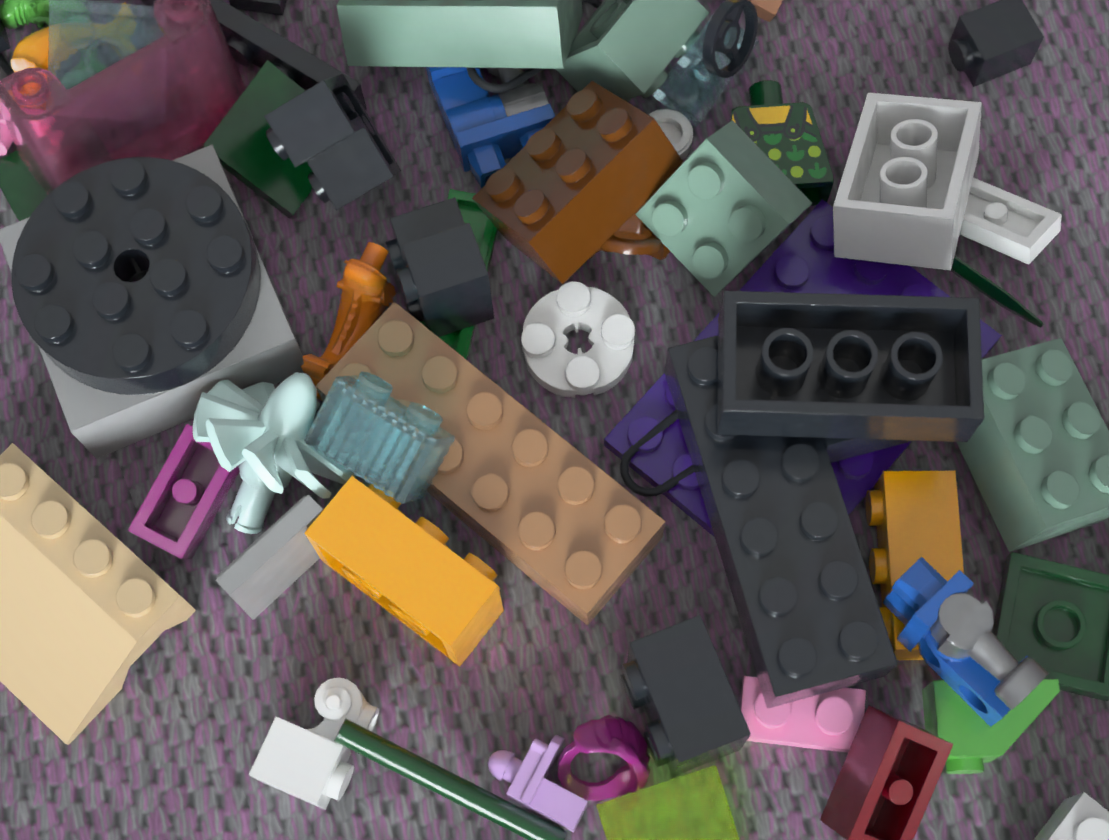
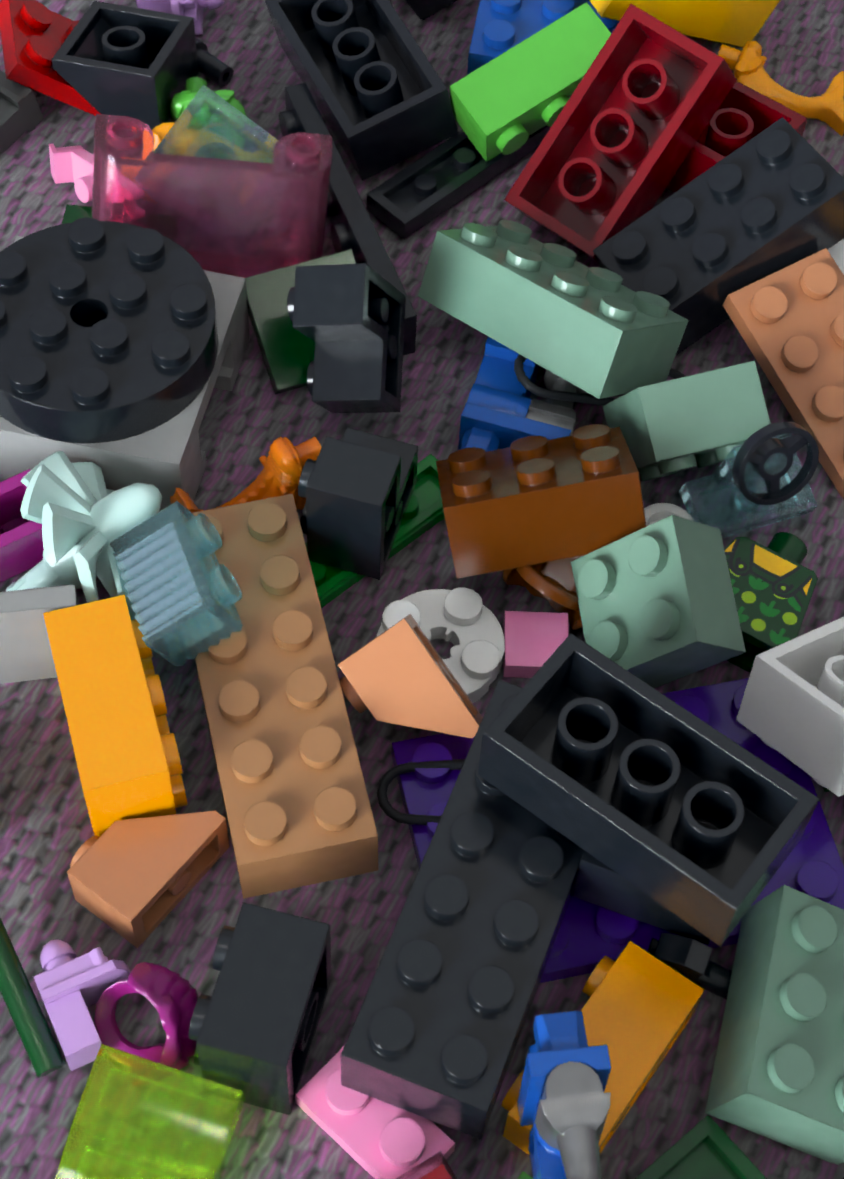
camera: 30 degrees right, 15 degrees down
(509, 659) = (145, 868): none -> nougat slope
(592, 391) = (408, 683): none -> slope
(643, 289) = (531, 640): none -> bright pink tile
(925, 456) = (692, 961): none -> black bar

